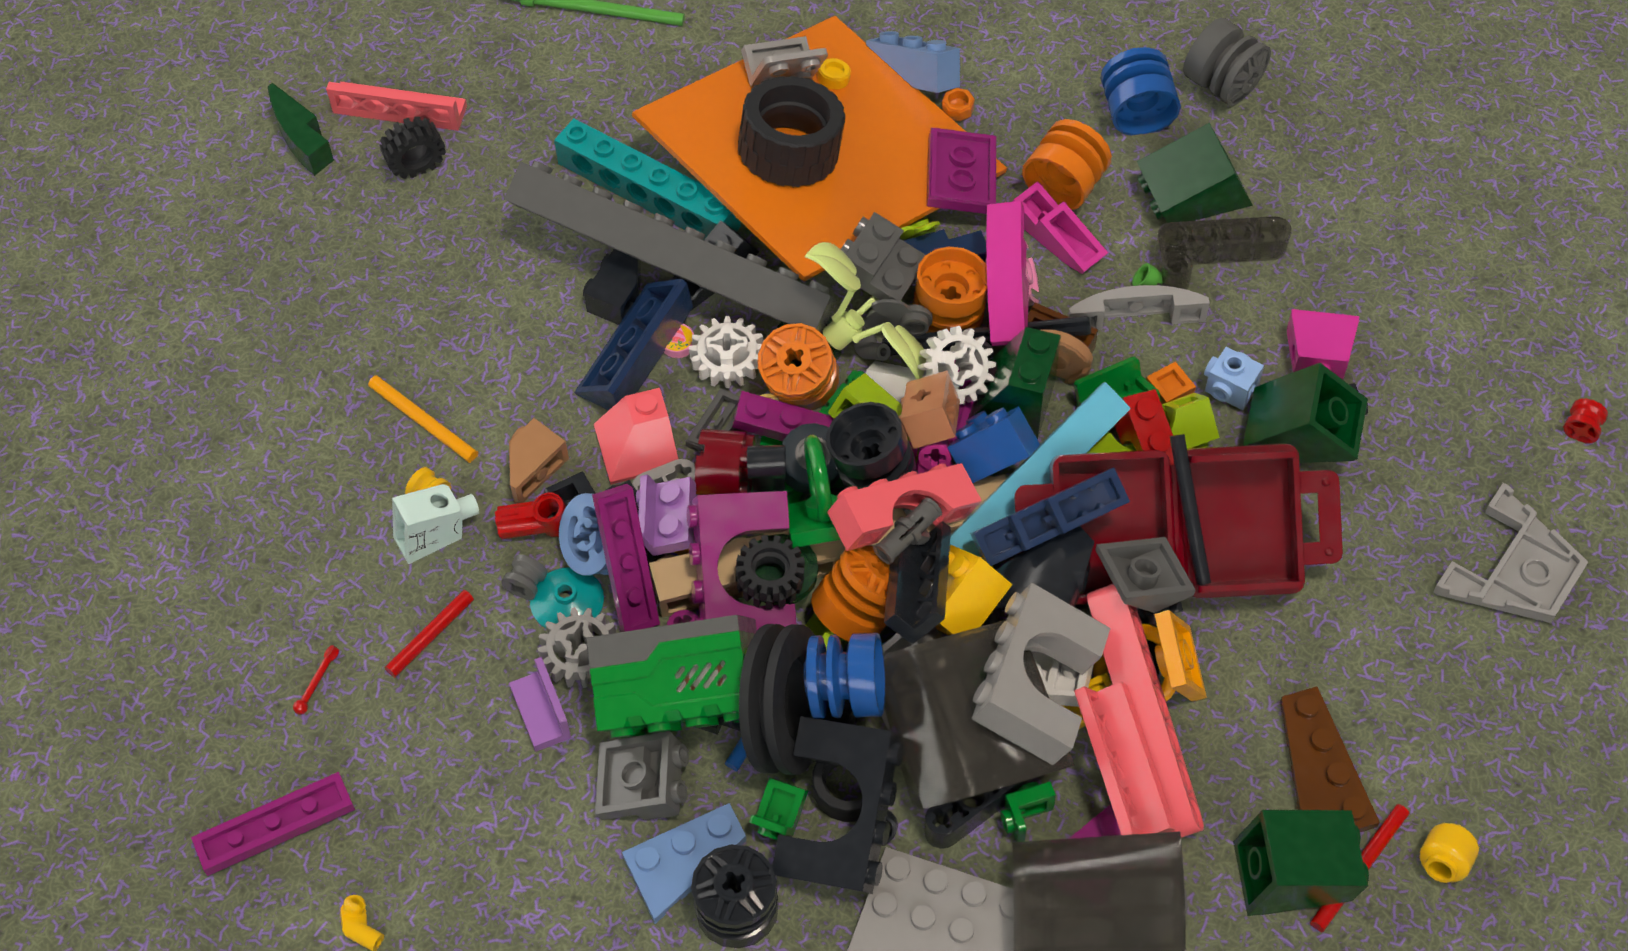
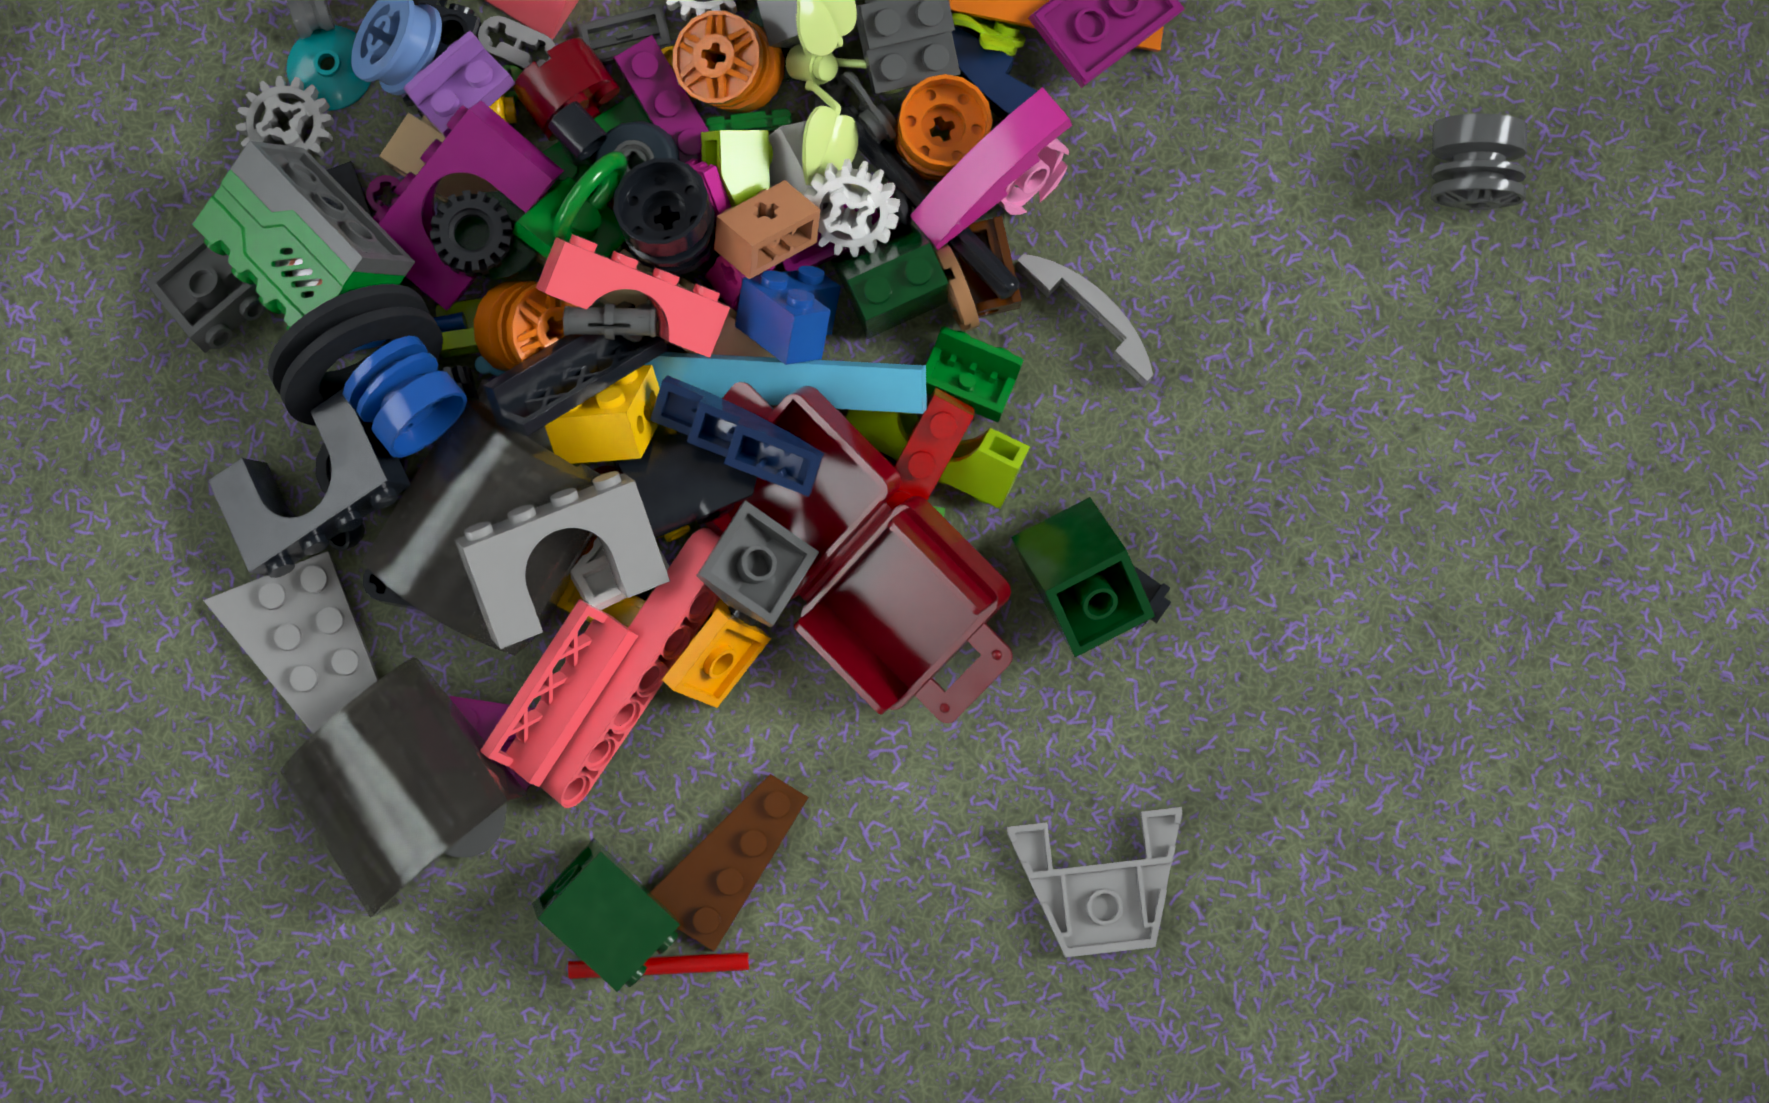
camera: 50 degrees right, 25 degrees up
(540, 708) = (203, 145): medium lavender panel -> none
(626, 558) = (376, 95): magenta plate -> none
(667, 862) = (174, 389): medium blue wing -> none
(732, 917) = (167, 493): black wheel -> none
(779, 809) = (277, 436): green bracket -> none
(1026, 802) = (443, 636): green bracket -> none
(1059, 229) = (1123, 162): dark pink slope -> none
(1068, 162) = (1199, 110): orange wheel -> none
(1140, 91) = (1360, 106): blue wheel -> none
(1147, 275) = (1139, 295): bright green hinge -> none
(1171, 383) = (1029, 415): orange plate -> none
(1190, 509) = (858, 553): black bar -> none
(1192, 178) = (1300, 246): dark green slope -> none
(1216, 242) = (1238, 338): clear smoke beam -> none
(1233, 377) = (1081, 484): light blue brick -> none
(1321, 339) = (1198, 523): dark pink torso -> none
(1449, 852) = (731, 1033): yellow head -> none
(1585, 420) = (1327, 834): red wheel -> none

